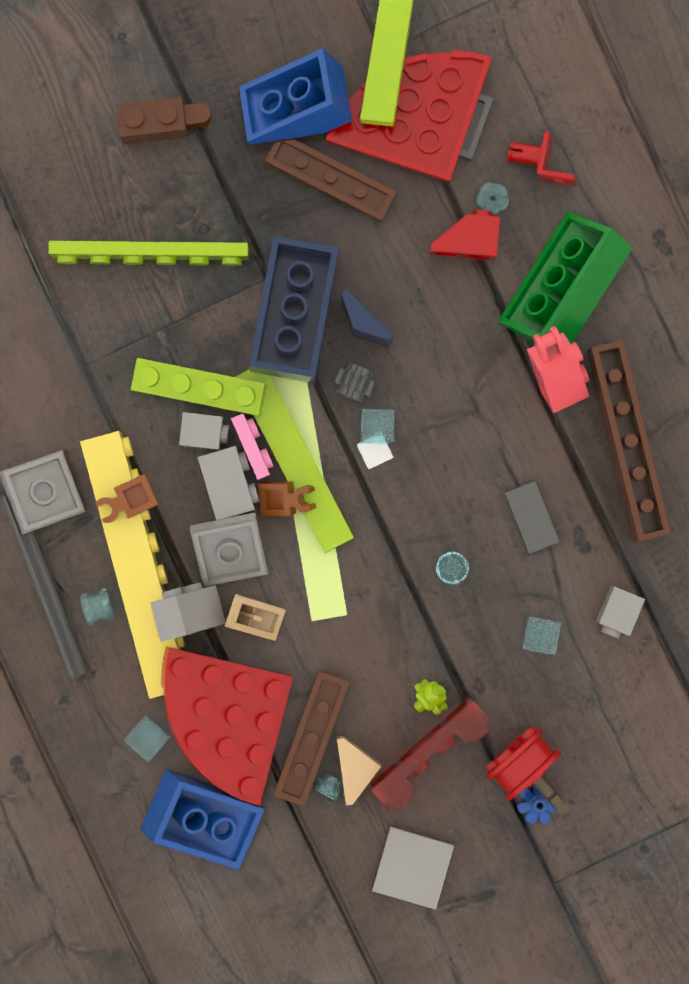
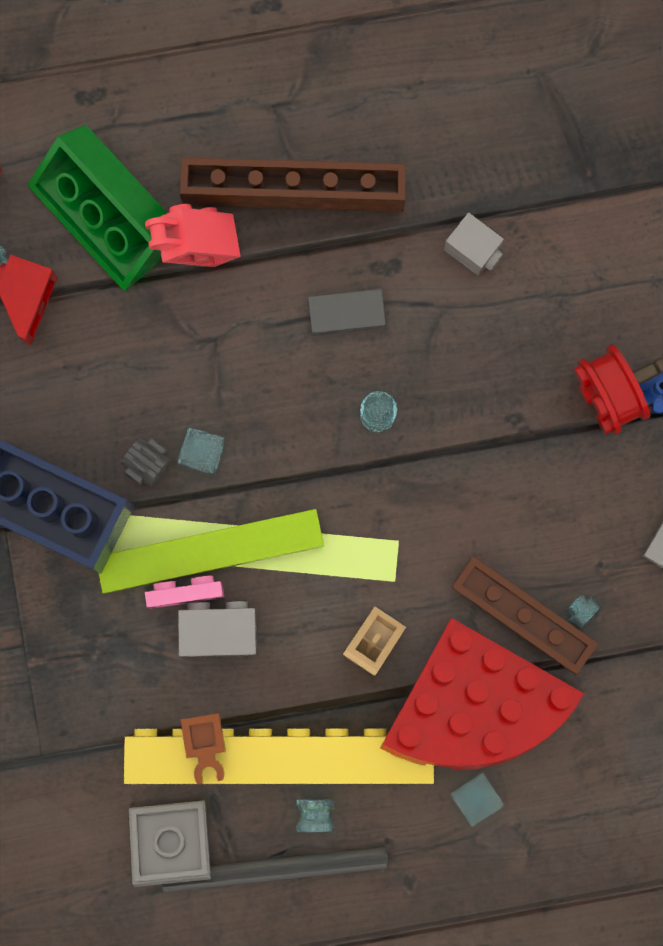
camera: 75 degrees left, 5 degrees down
(187, 611) = (347, 714): light grey brick -> none
(198, 386) = (101, 635): lime plate -> none
(201, 820) = (583, 763): blue slope -> none
(203, 431) = (152, 643): light grey brick -> none
(229, 549) = (291, 649): light grey tile -> none
(280, 499) = (251, 577): dark orange plate -> none
(356, 768) = (571, 575): tan slope -> none
(363, 323) = (82, 432): dark blue slope -> none
(374, 453) = (230, 463): white sticker -> none
(394, 785) = (549, 441): clear red piece -> none
(430, 697) = (513, 472): lime plant -> none
(541, 635) = (477, 335): clear light blue plate -> none

